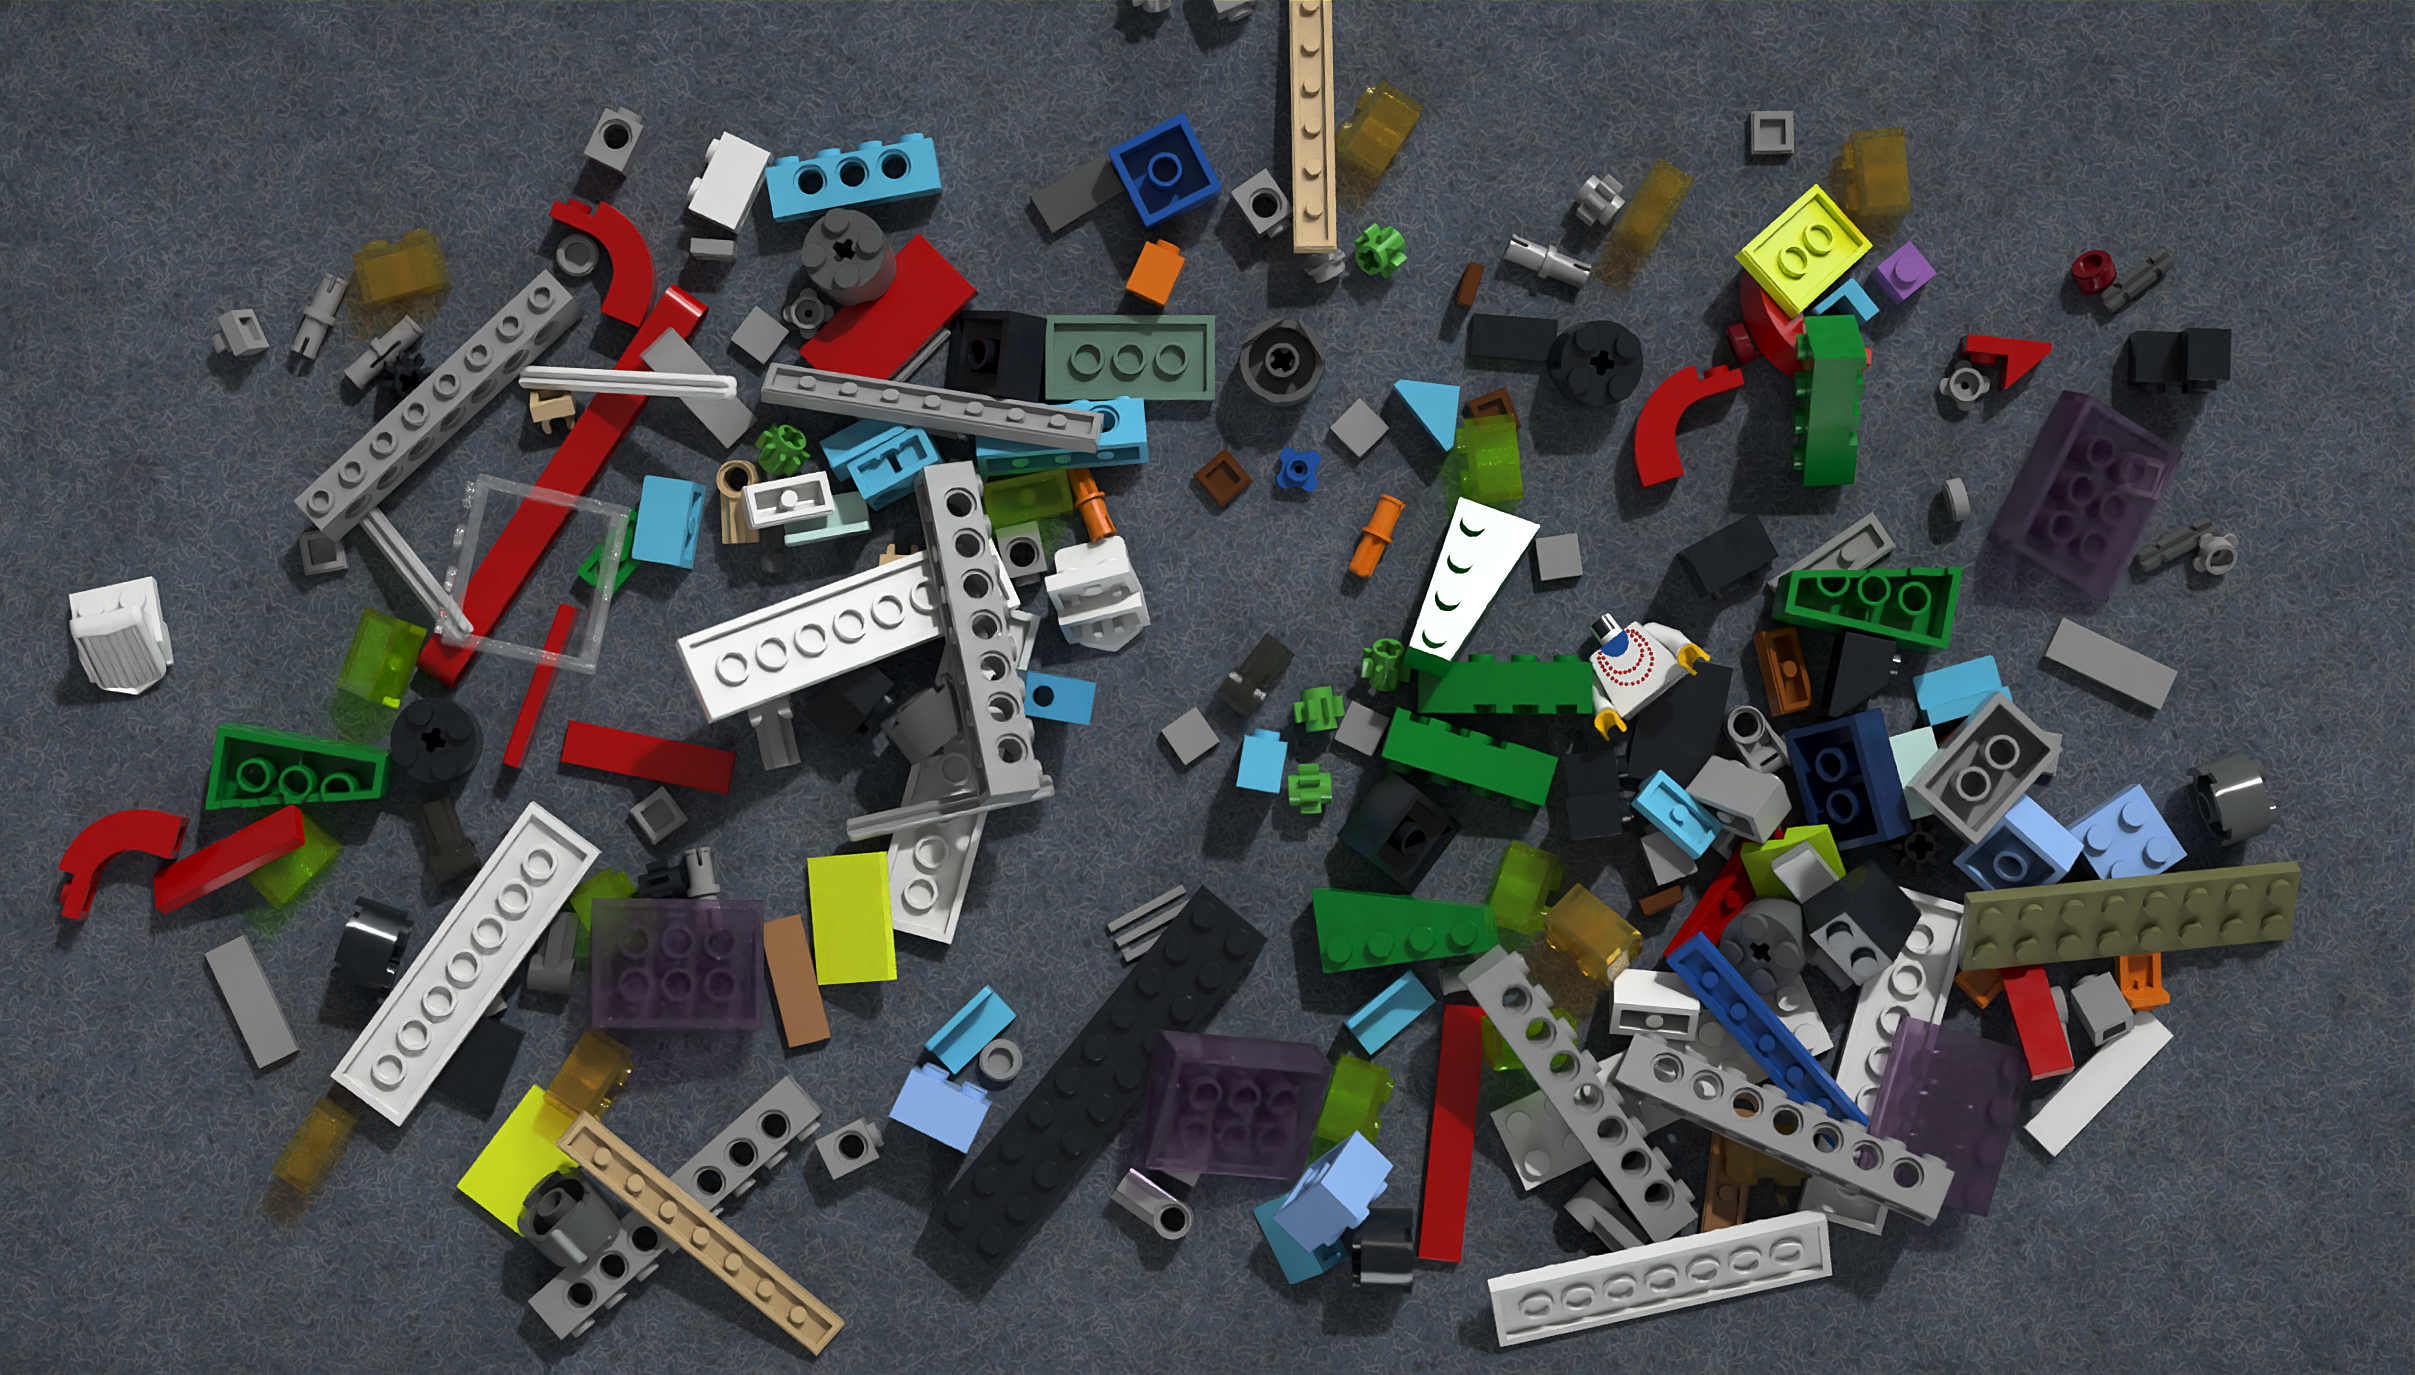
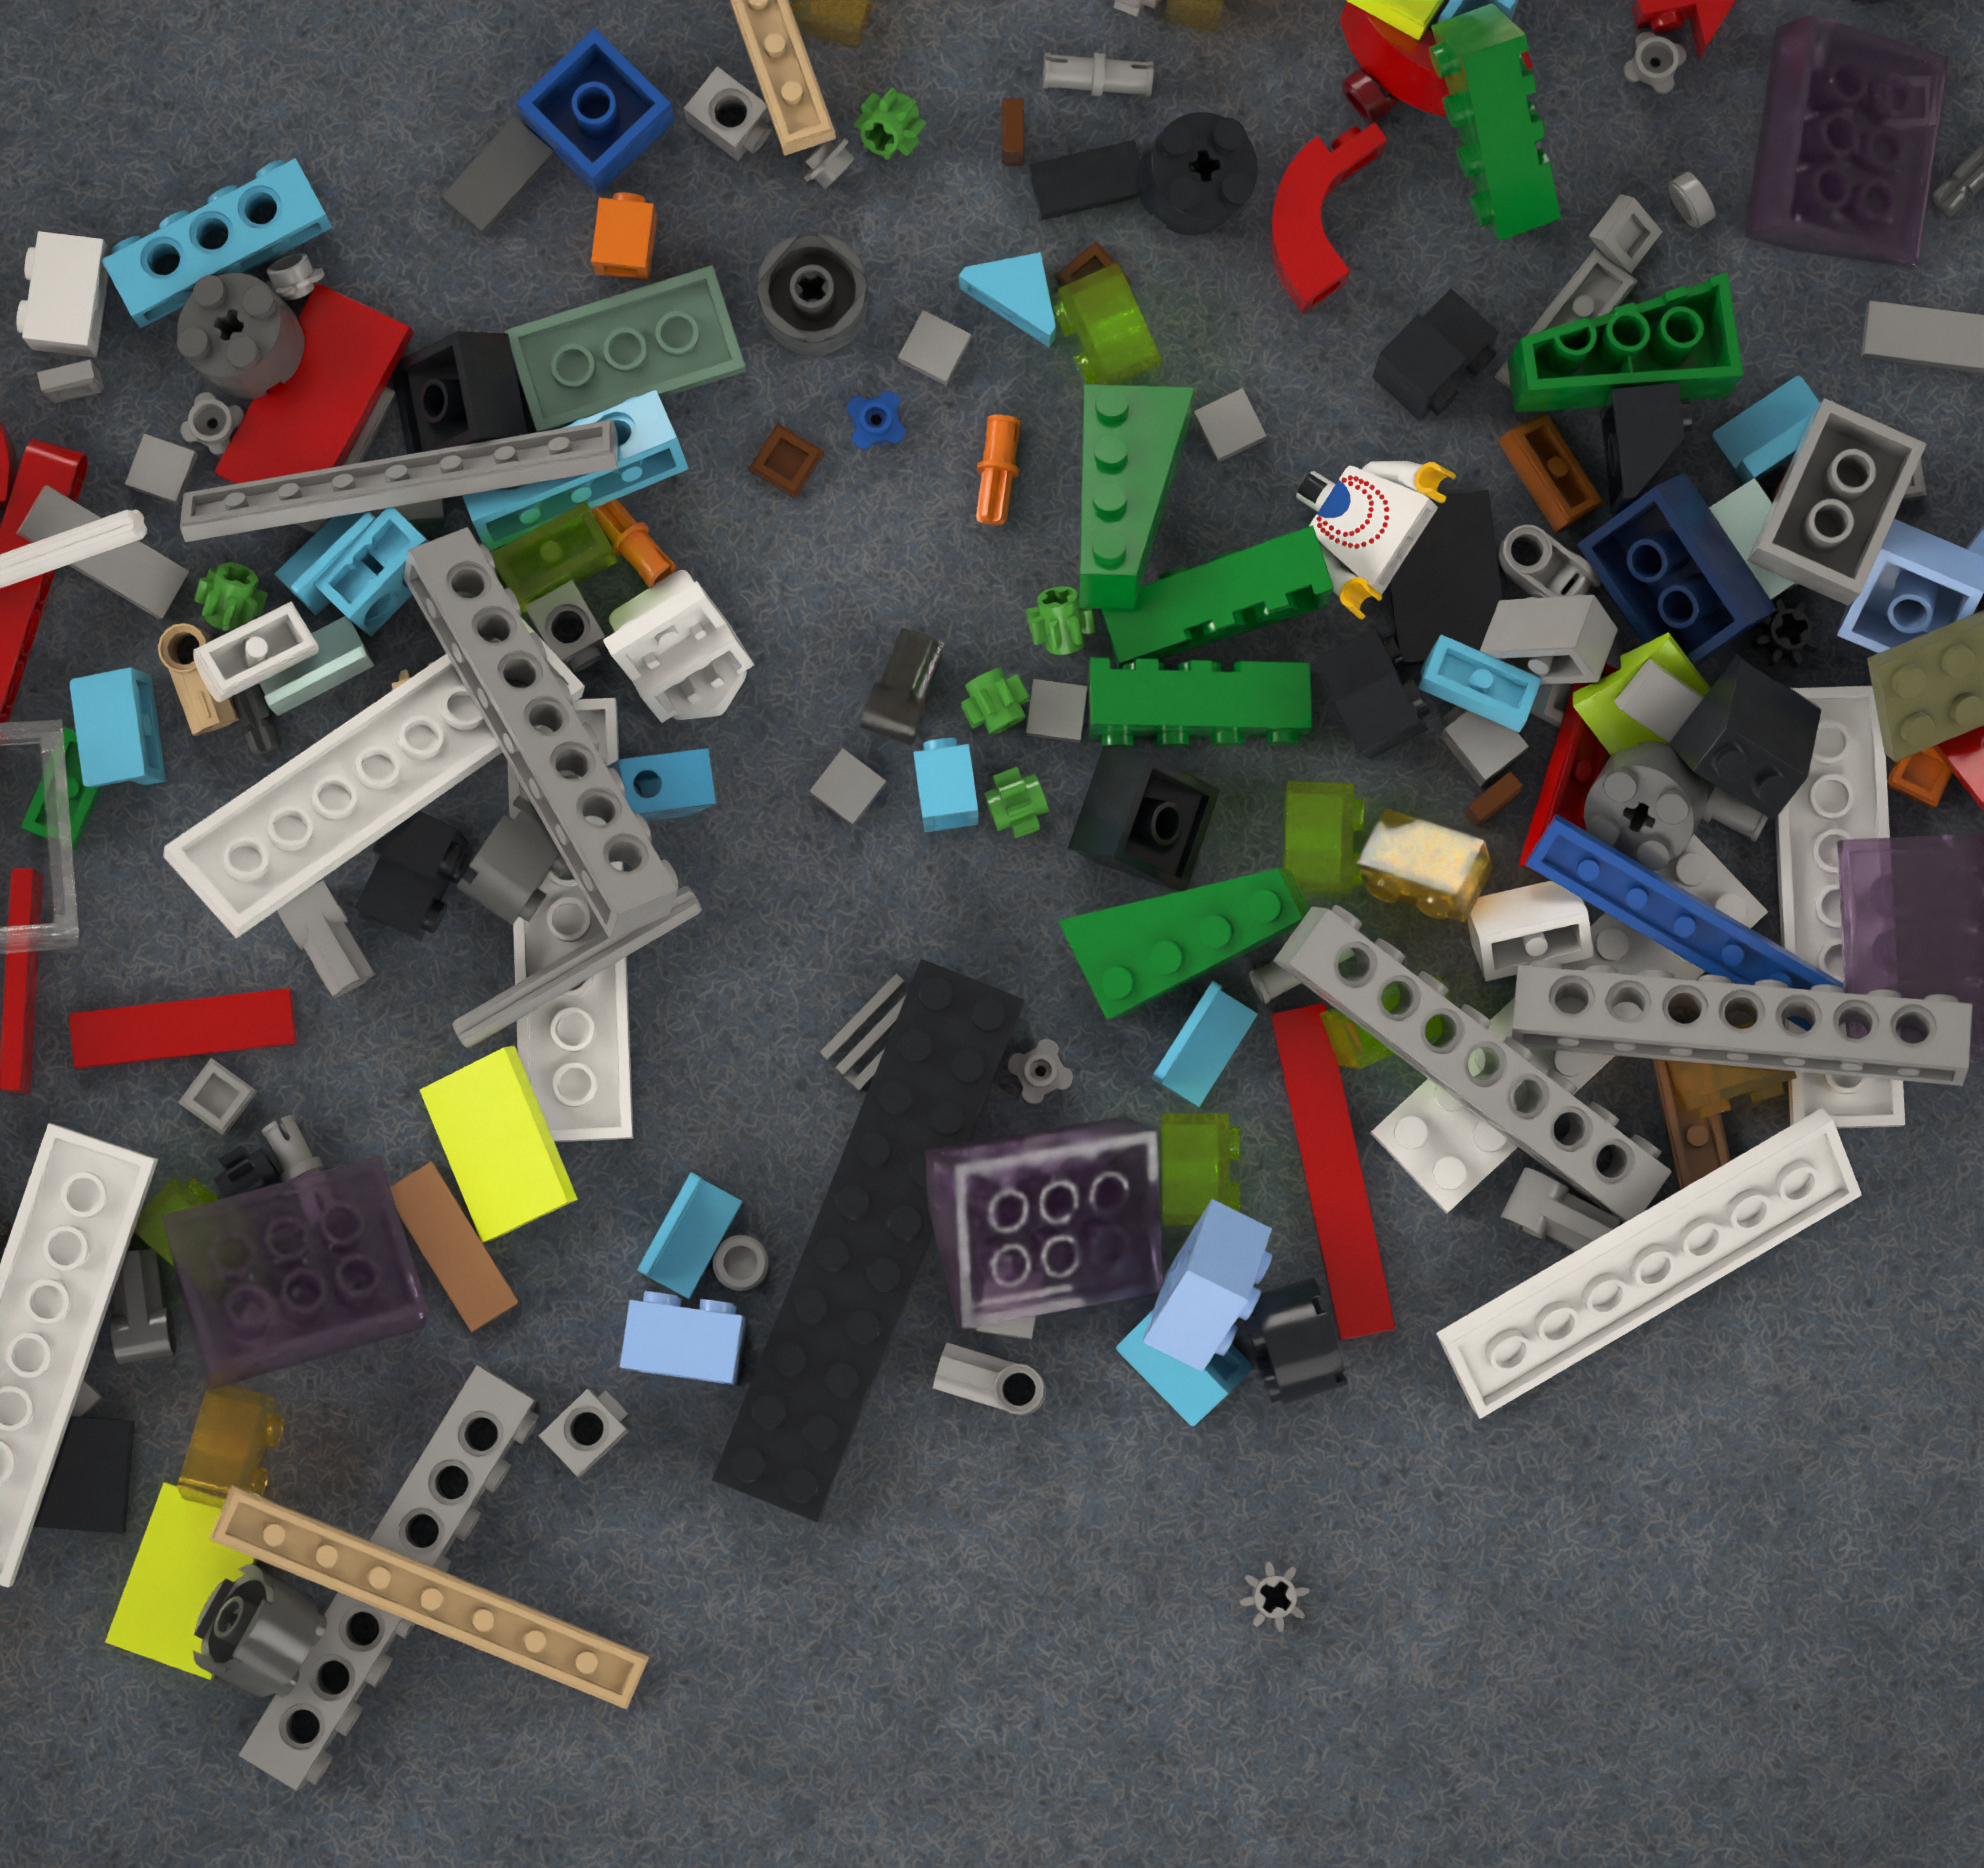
camera: 15 degrees left, 5 degrees down
(901, 223) = (293, 276): none -> light grey plate
(1253, 984) = (1046, 1056): none -> light grey plate
(1898, 509) = (1625, 233): none -> light grey plate

